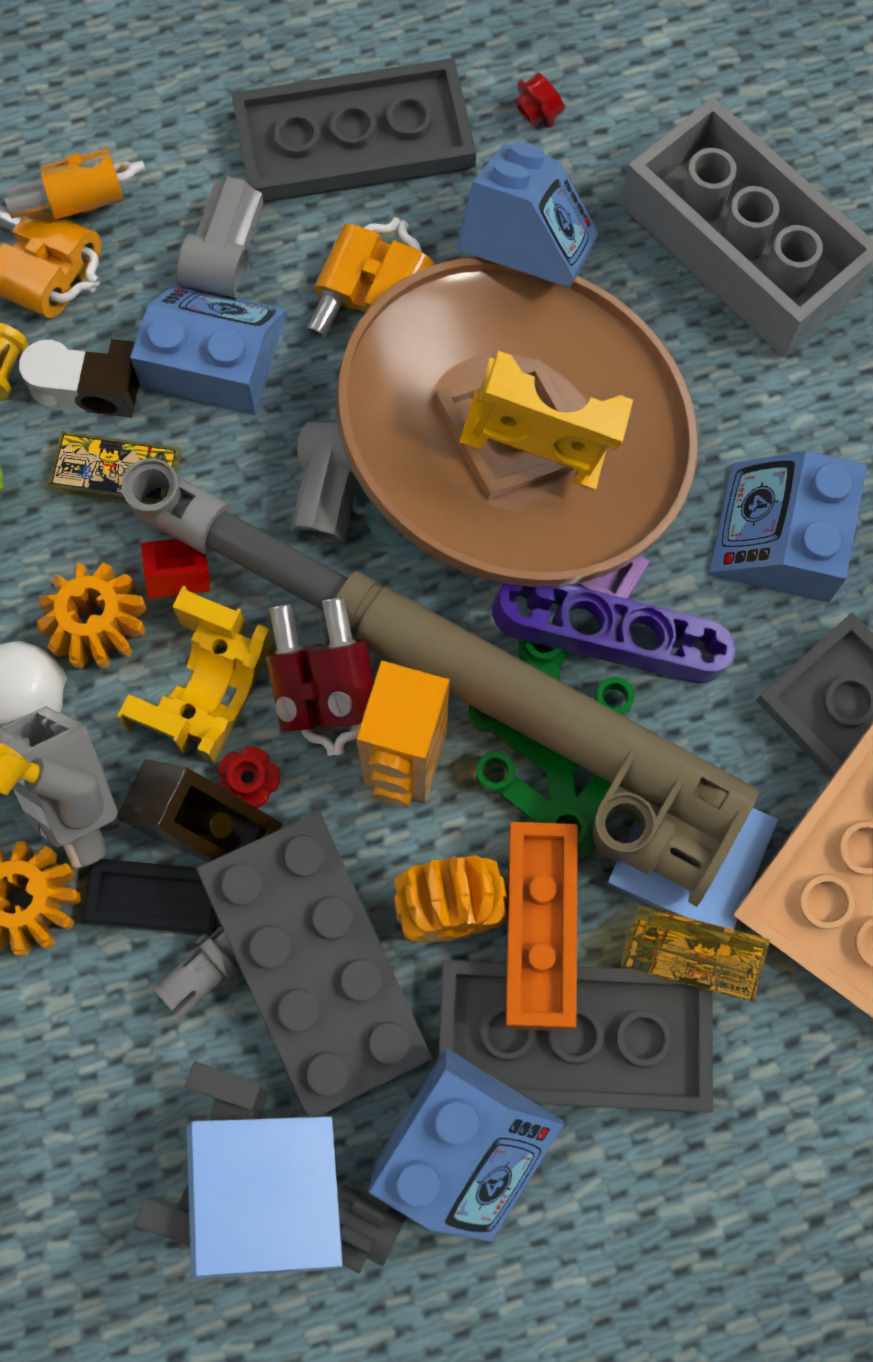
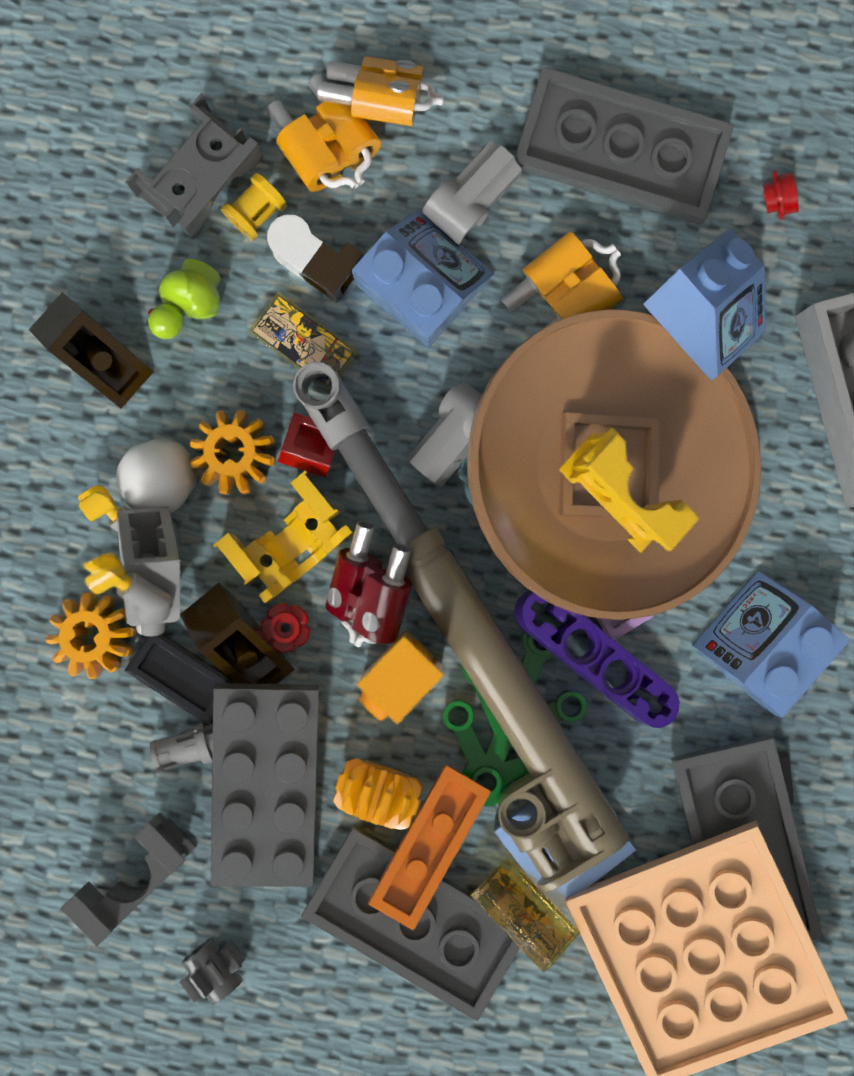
camera: 25 degrees right, 15 degrees up
(262, 1197) = (151, 933): light blue tile -> none
(462, 1151) = (296, 960): medium blue slope -> none

